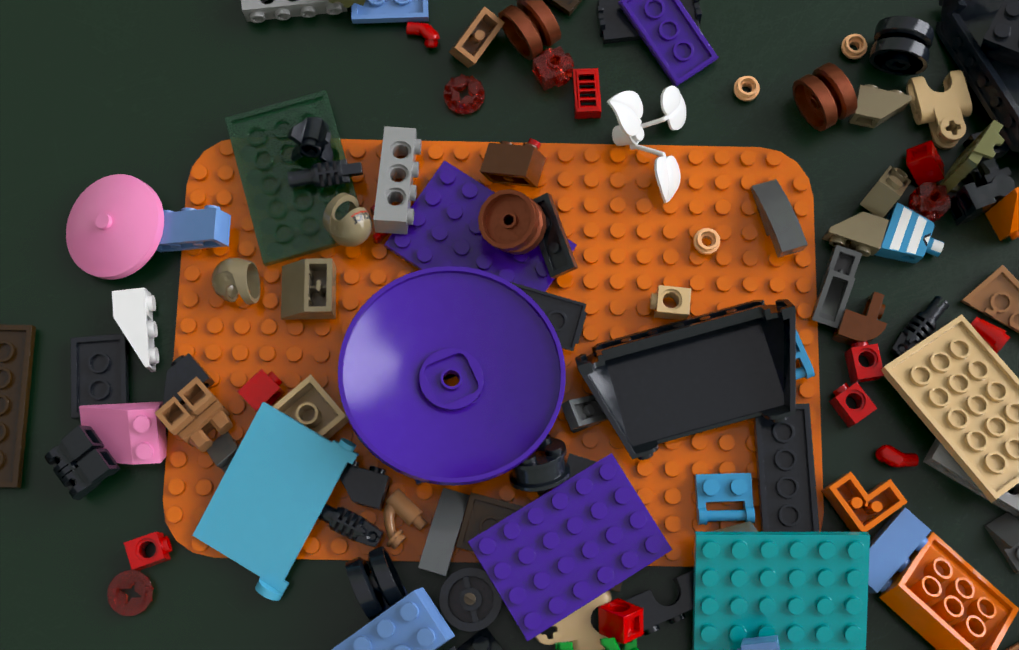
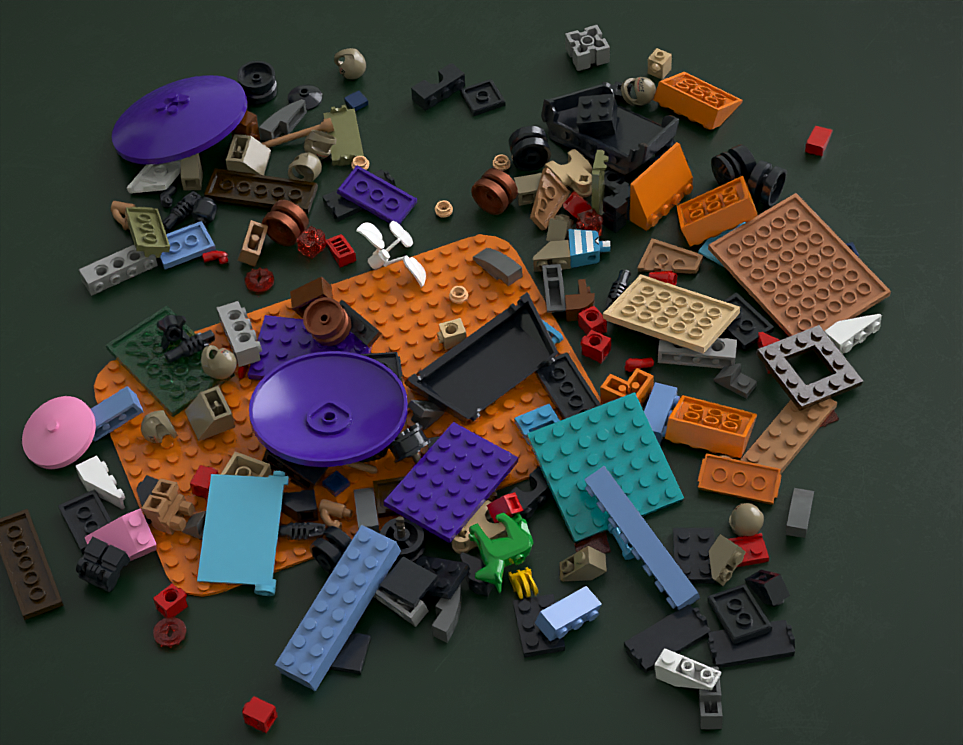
camera: 20 degrees left, 25 degrees down
(891, 138) = (548, 199): none -> medium nougat wing

